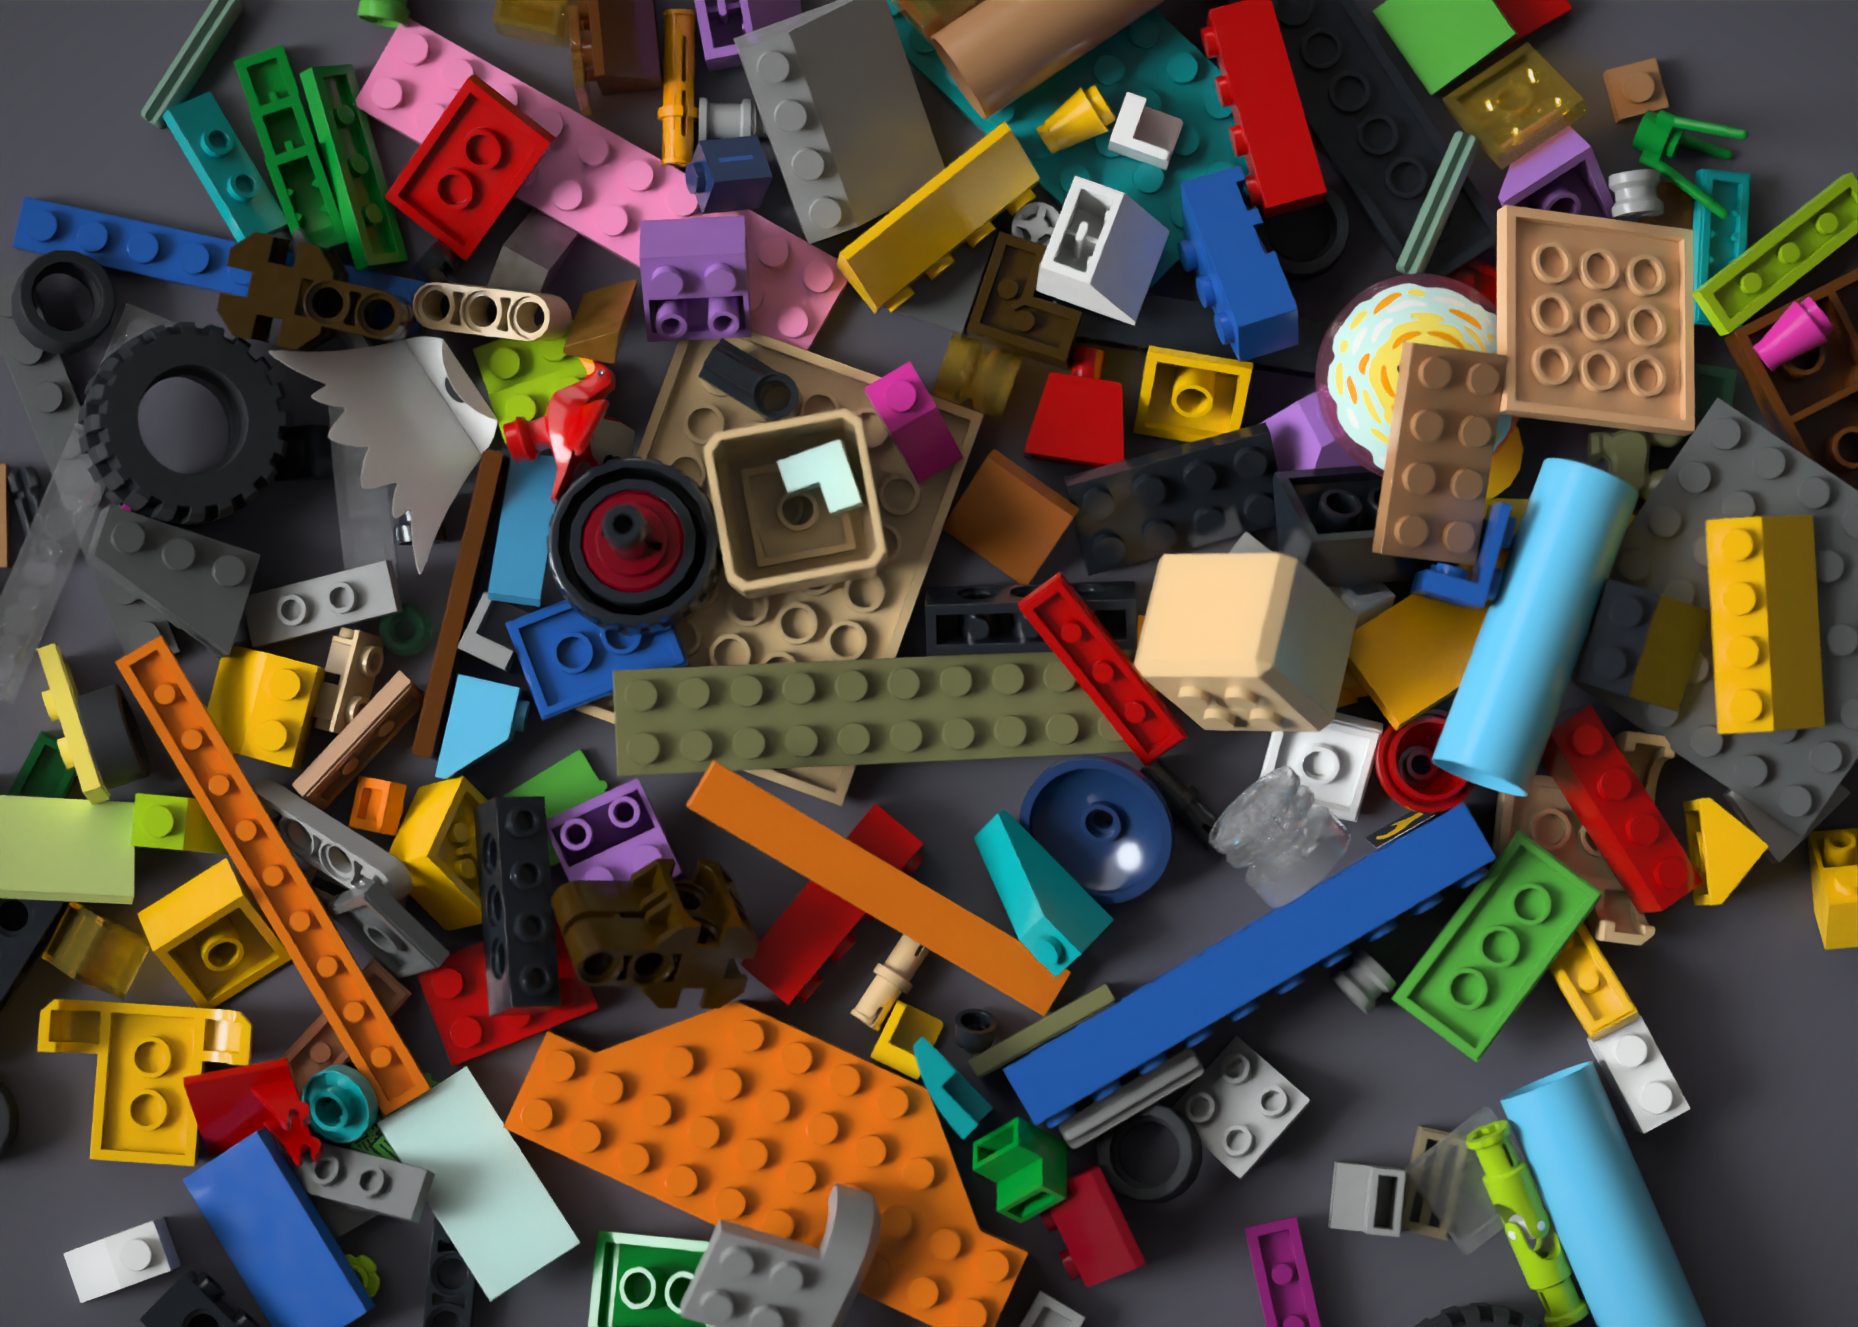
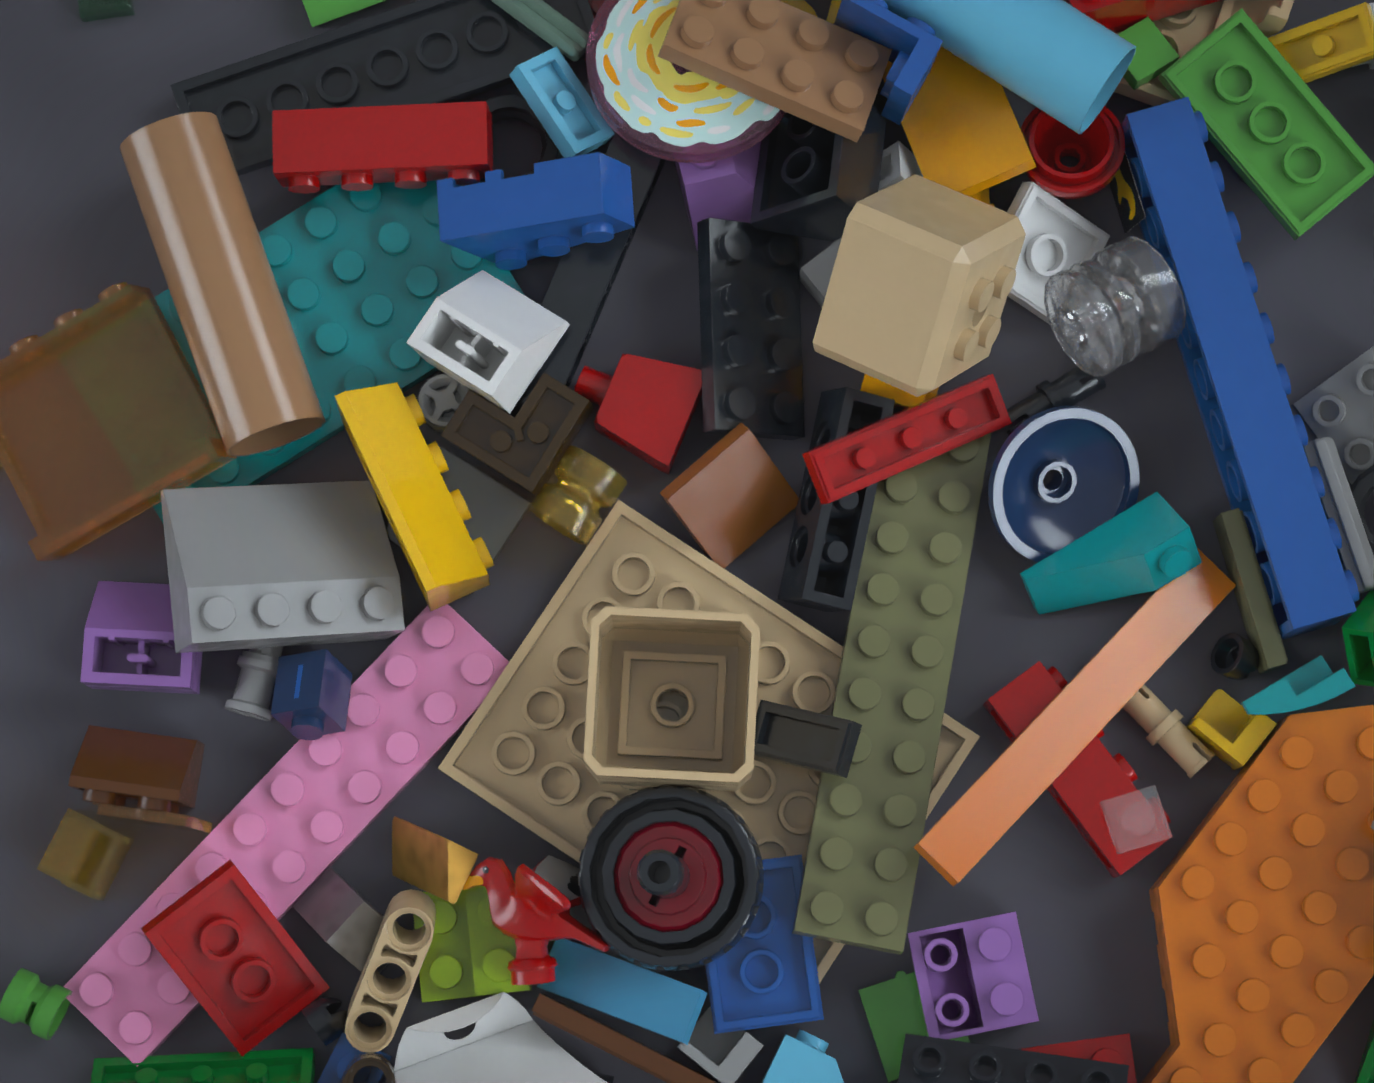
camera: 80 degrees left, 5 degrees down
(659, 932) = (1066, 970): dark brown connector -> none
(678, 88) = (221, 730): light orange pin -> none
(695, 278) = (410, 752): medium lavender slope -> none
(748, 381) = (527, 725): black piece -> none
(793, 966) = (1136, 819): none -> clear plate
(795, 639) = (805, 738): none -> black tile
(824, 467) = (641, 659): light aqua piece -> none
(913, 422) = (611, 568): dark pink slope -> none
(1077, 120) = (347, 333): yellow cone -> none
(1144, 132) = (377, 271): white panel -> none
(1190, 395) = (650, 291): yellow slope -> none
(1348, 265) = (561, 103): none -> medium azure plate
(1364, 981) = (1272, 264): light grey wheel -> none
(1540, 811) = (1152, 53): none -> bright green tile

